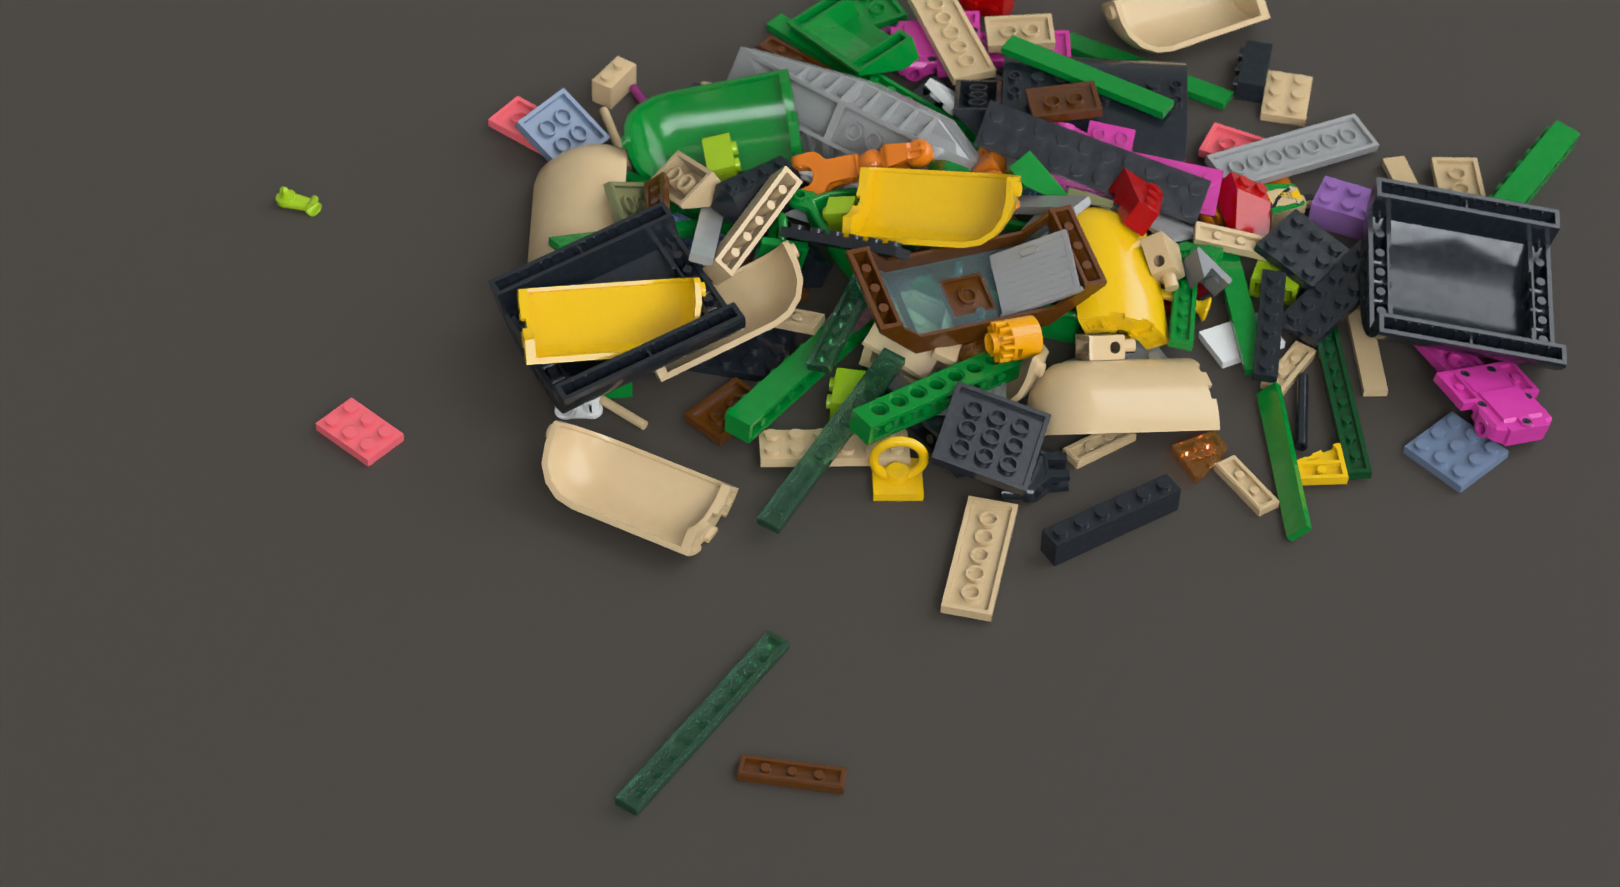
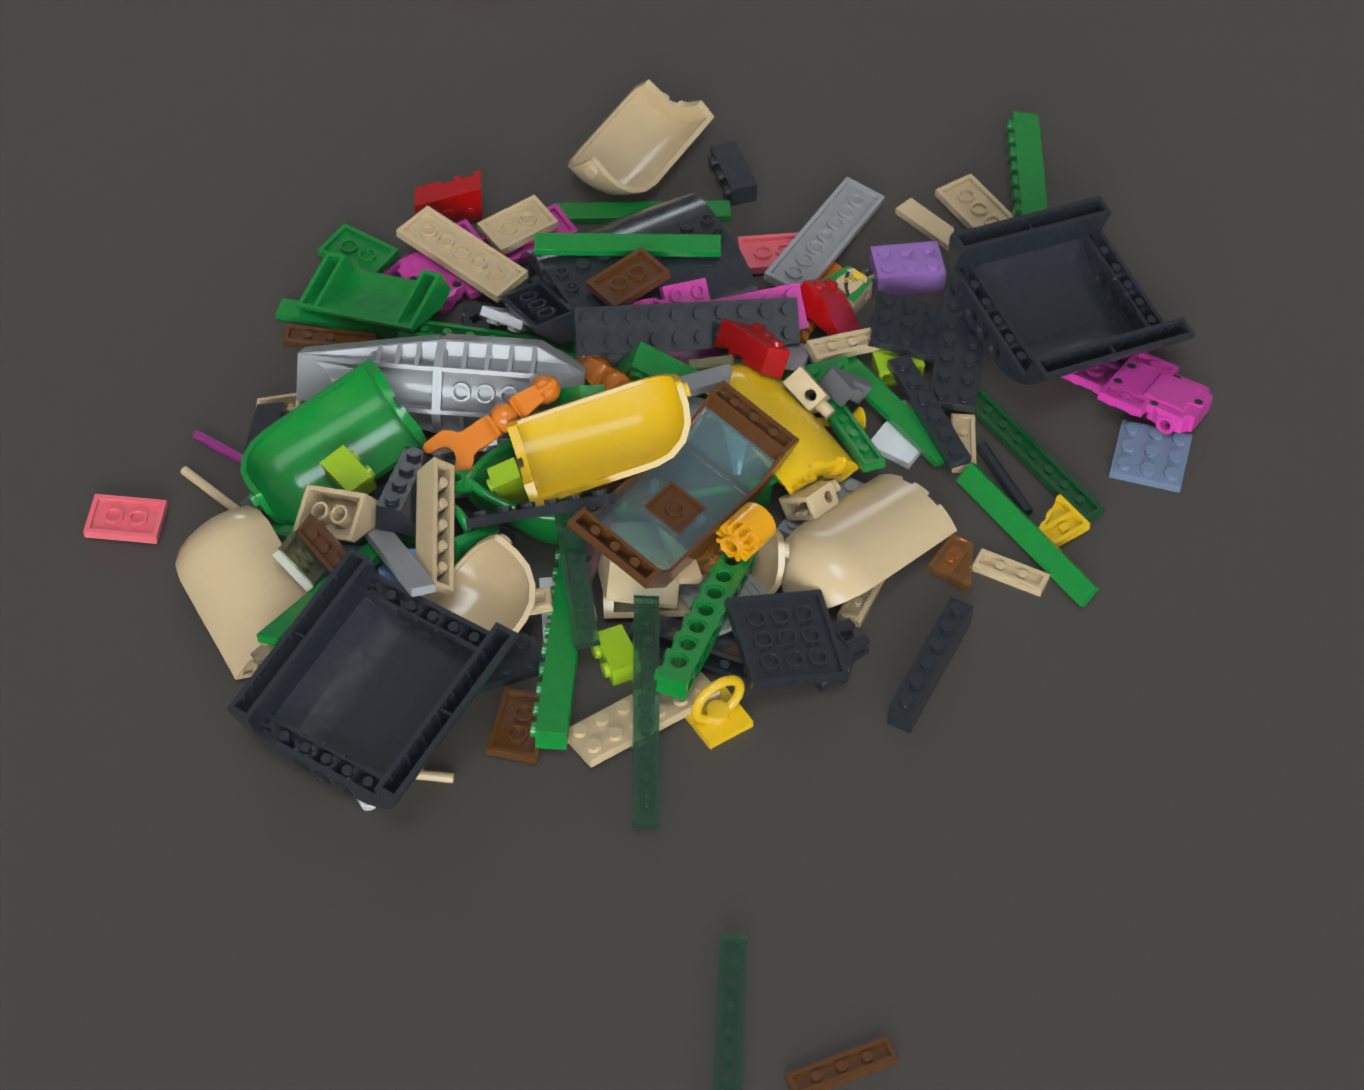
camera: 30 degrees left, 5 degrees up
(359, 432) = (186, 924): coral plate -> none
(560, 126) = (166, 510): sand blue plate -> none
(603, 317) = (370, 692): yellow panel -> none
(613, 82) = (177, 438): tan brick -> none
(633, 488) = (500, 852): tan panel -> none
(979, 558) = (847, 760): tan plate -> none
(1035, 273) = (728, 460): light grey piece -> none
(1286, 98) = (777, 187): tan plate -> none
(1367, 358) = (1016, 399): tan tile -> none

